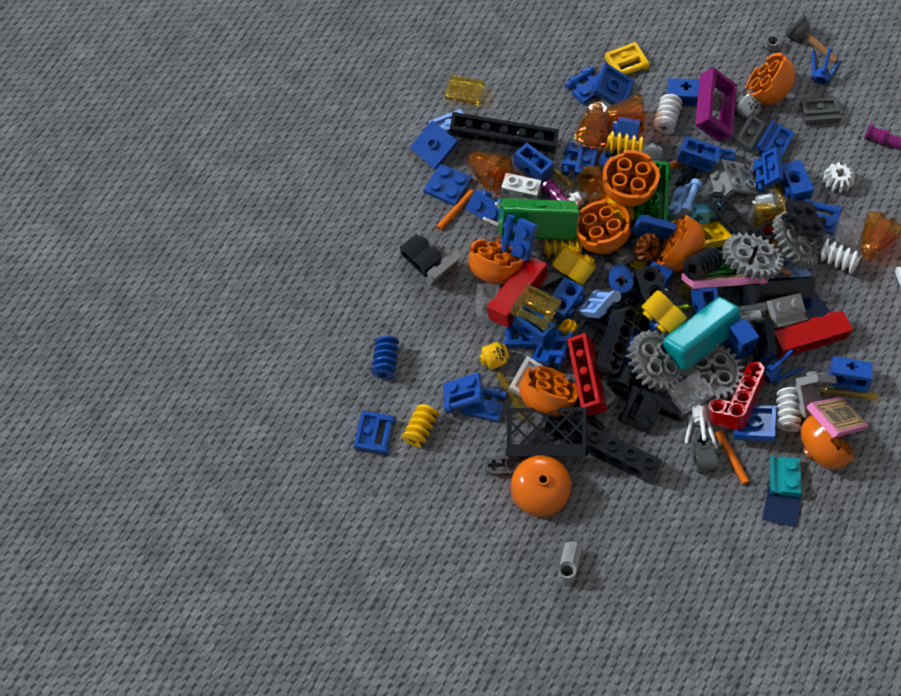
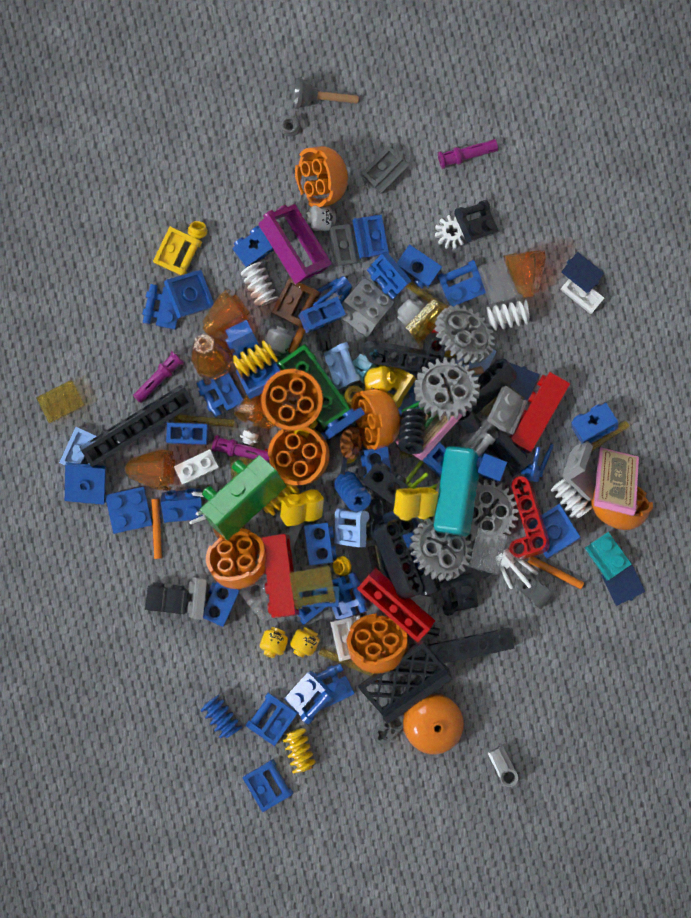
camera: 45 degrees left, 25 degrees up
(426, 394) = (276, 723): none -> blue plate
(458, 288) = (224, 605): none -> blue brick
(471, 339) = (273, 642): none -> yellow head
(523, 240) = (245, 533): blue plate -> none
(553, 120) = (165, 370): none -> magenta pin
(653, 57) = (197, 230): none -> yellow plate
(674, 140) = (290, 300): none -> reddish brown plate
(708, 220) = (379, 378): none -> yellow head
(804, 218) = (459, 311): black plate -> none
(822, 74) = (358, 128): blue plant -> none
(860, 185) = (479, 227): none -> black plate

